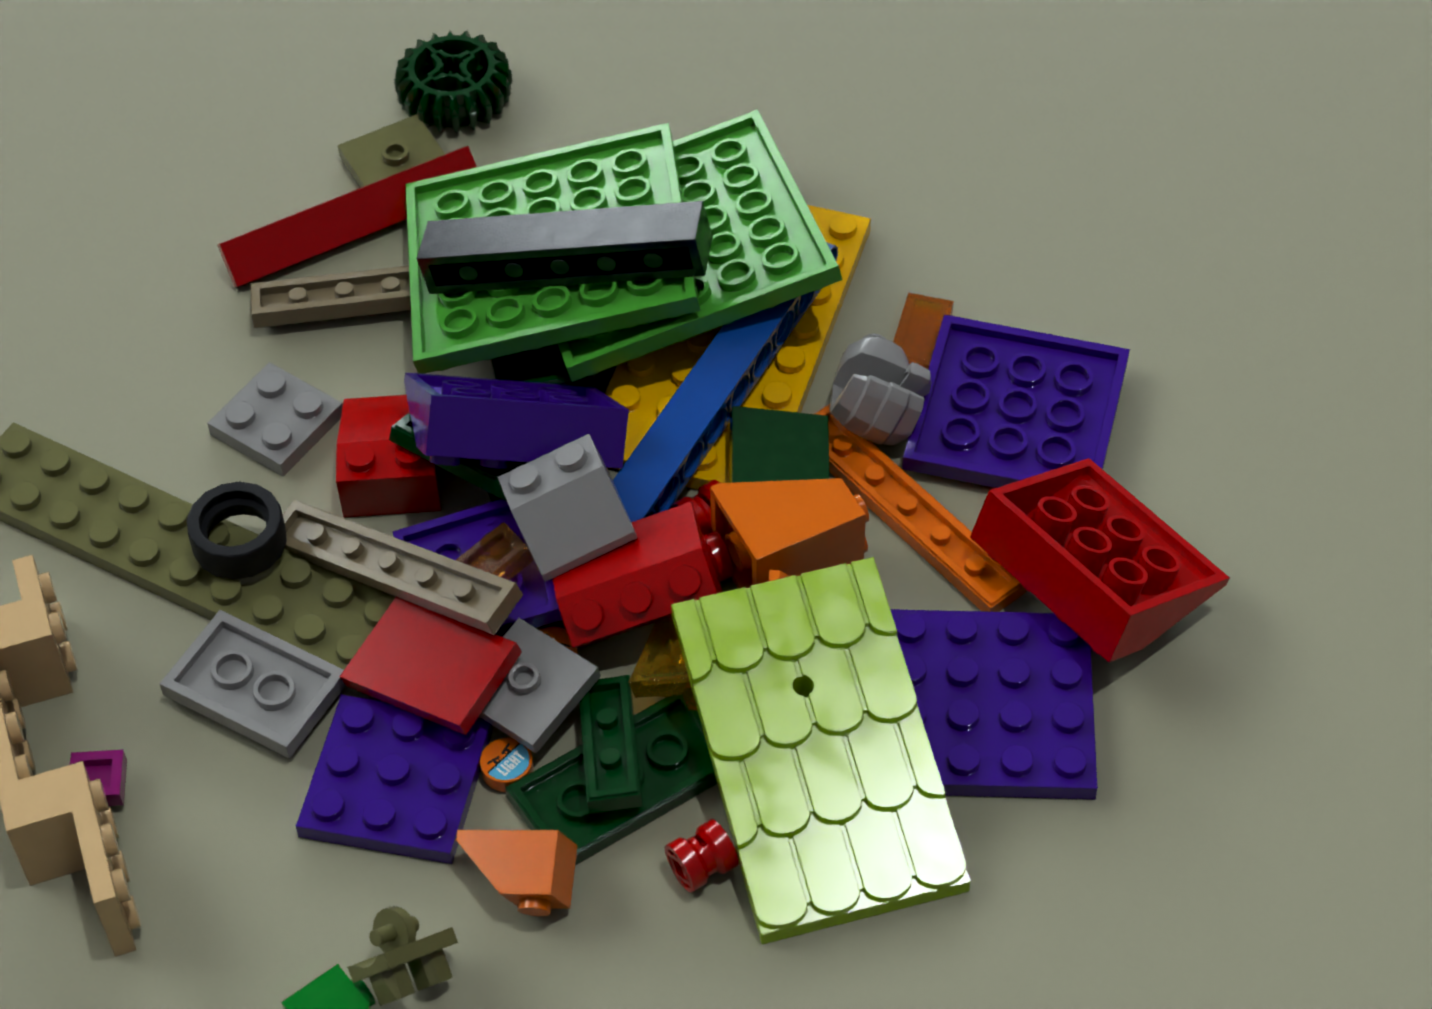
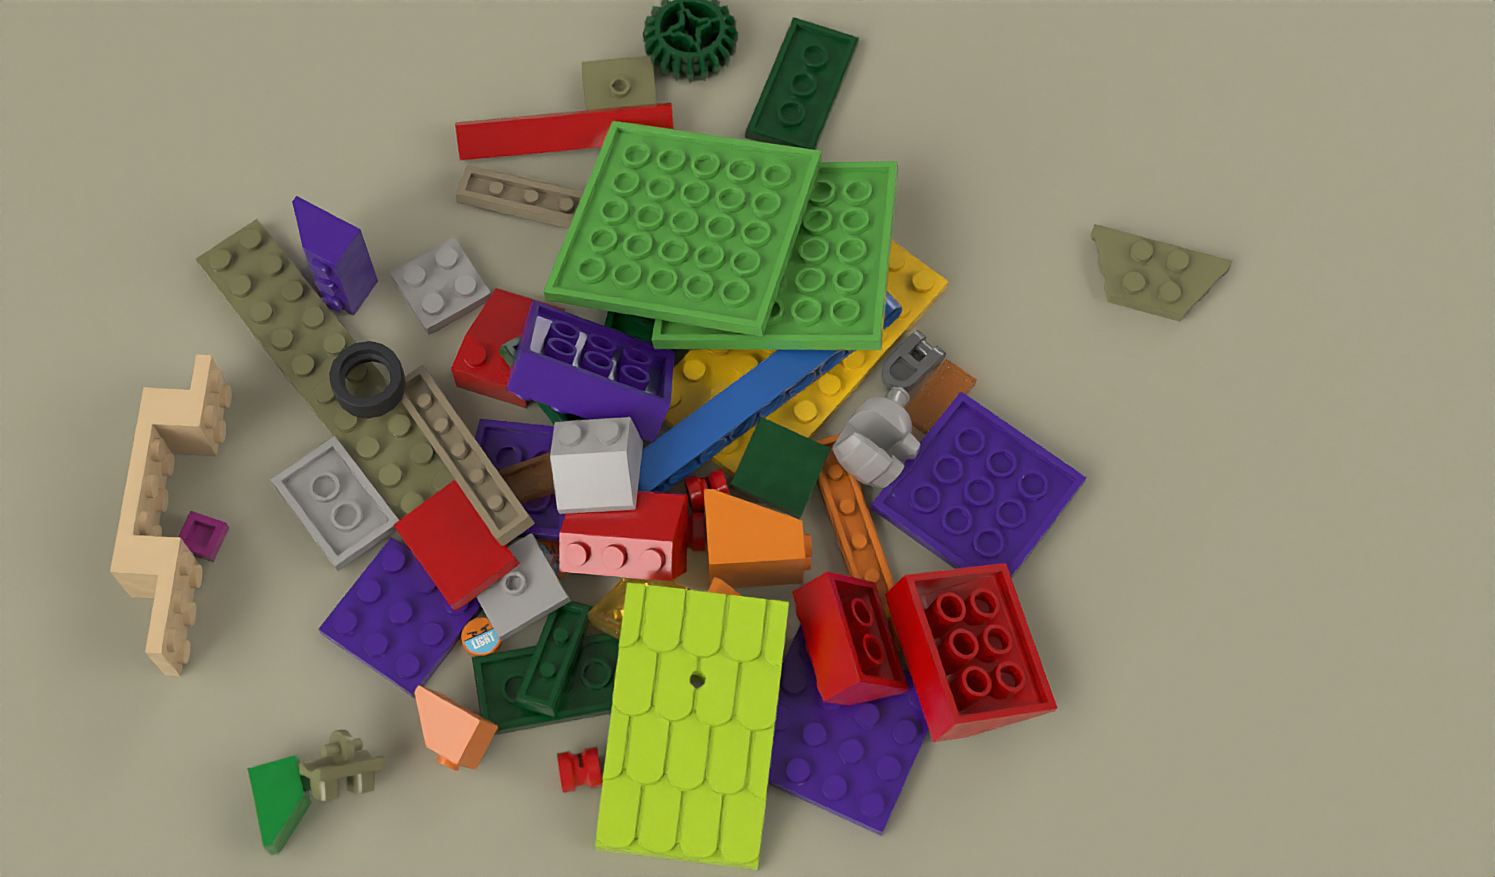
camera: 20 degrees right, 15 degrees up
(136, 409) = (335, 257): none -> dark purple slope
(565, 247) = (688, 244): brick -> none
(604, 82) = (802, 86): none -> dark green tile
(871, 308) = (905, 371): none -> dark grey plate
(953, 594) = (848, 639): none -> red slope
(1090, 142) = (1154, 273): none -> olive wing

